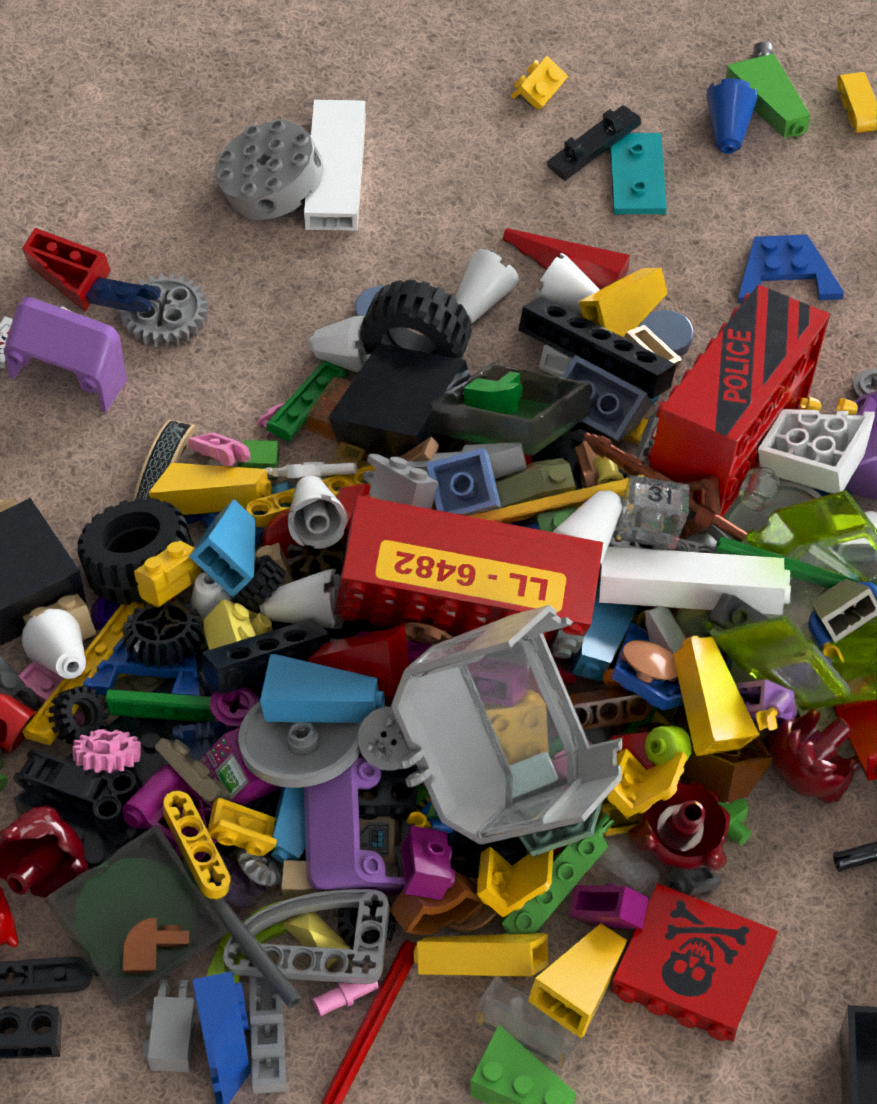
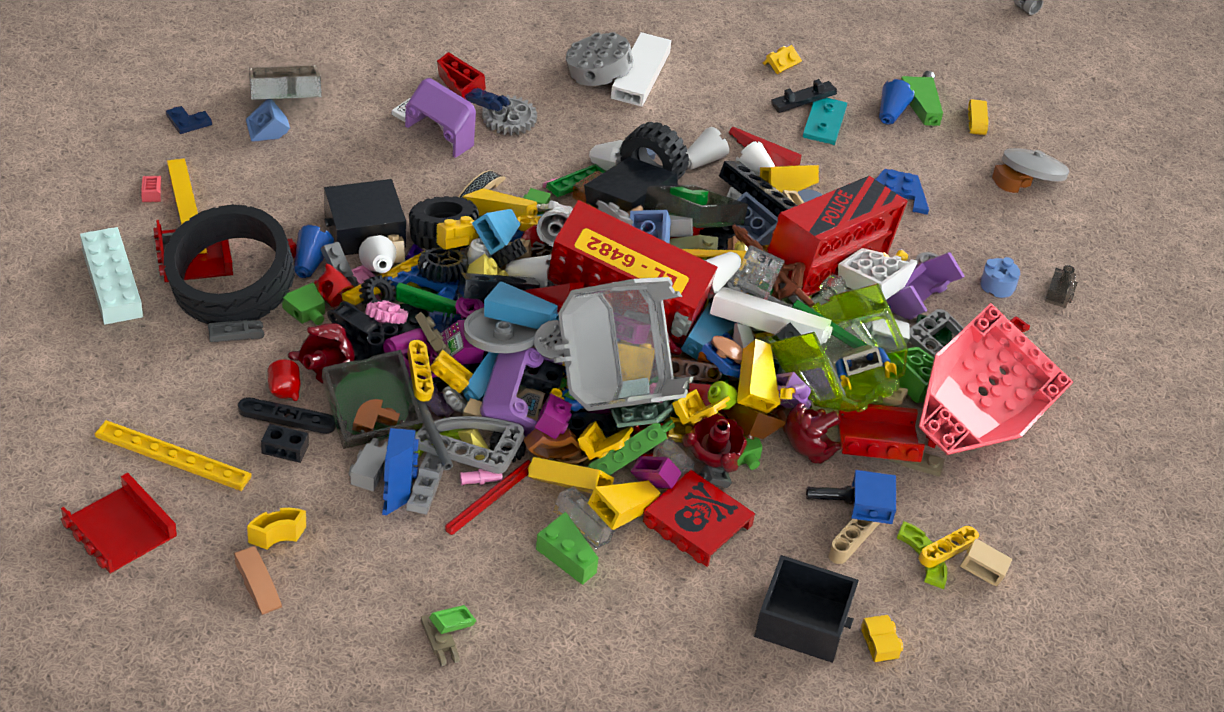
camera: 10 degrees right, 10 degrees down
(220, 448) = (514, 188): bright pink hinge -> none

